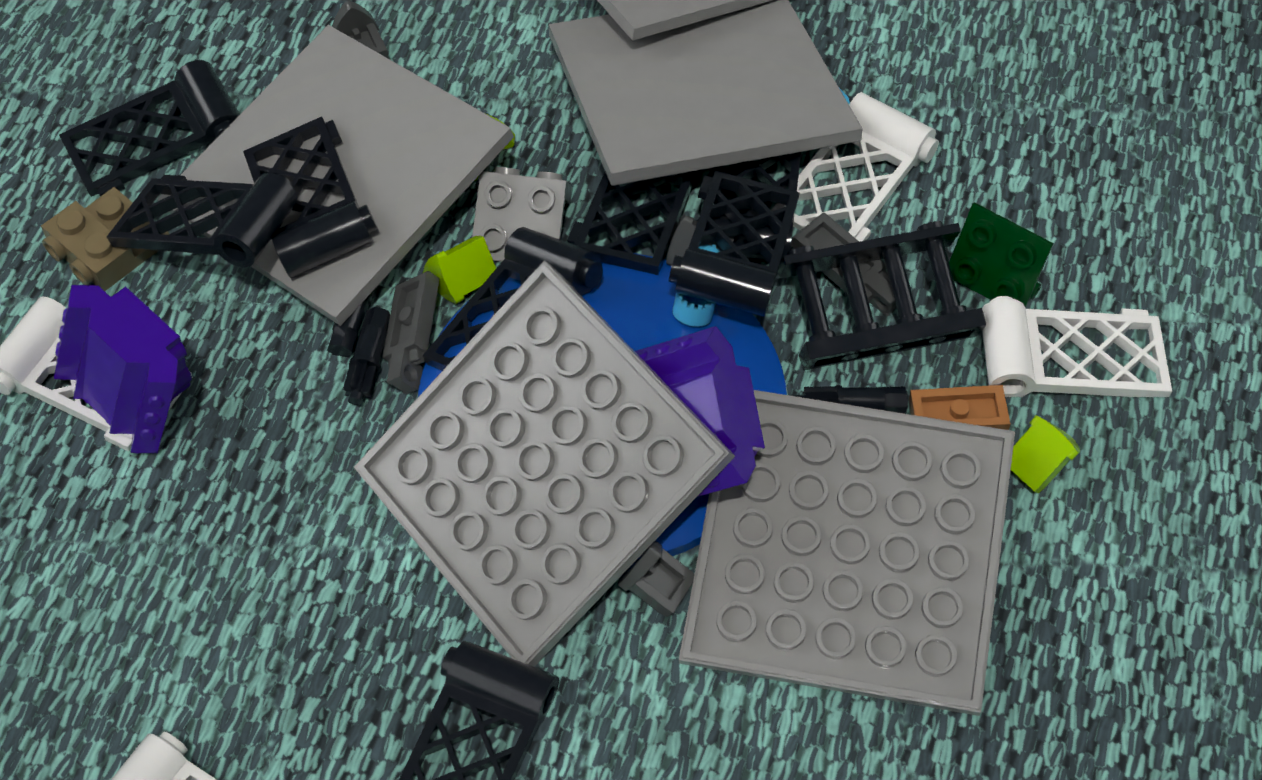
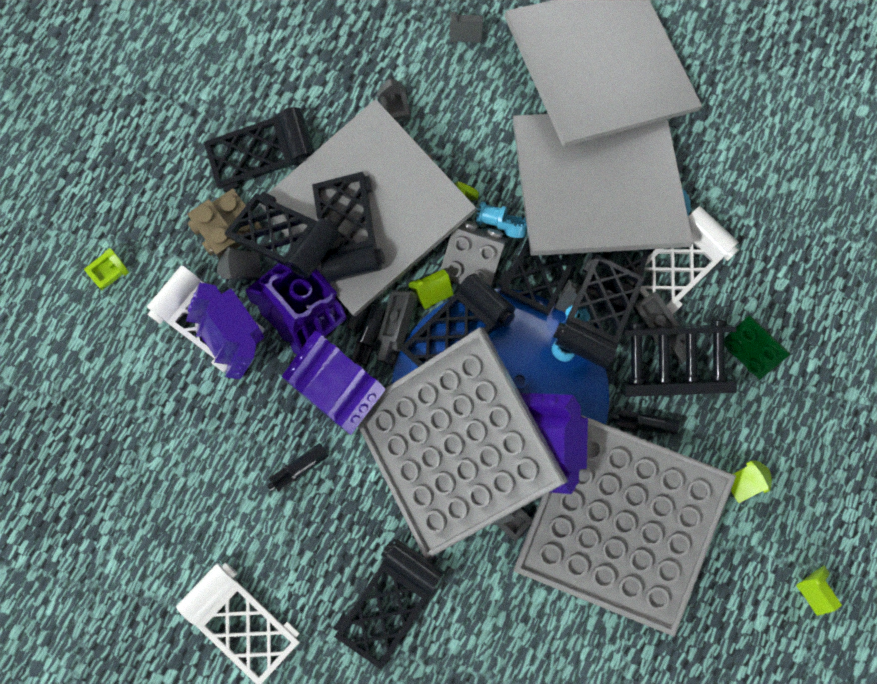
camera: 10 degrees right, 20 degrees up
(146, 281) = (239, 265): none -> dark grey tile
(244, 325) = (296, 304): none -> dark purple slope
(273, 568) = (297, 468): none -> black piece
(316, 417) = (333, 382): none -> dark purple slope
(552, 158) = (512, 225): none -> medium azure connector
(967, 405) = (707, 442): medium nougat plate -> none
(1017, 363) = (751, 403): white piece -> none
(1205, 598) = (818, 592): none -> lime tile

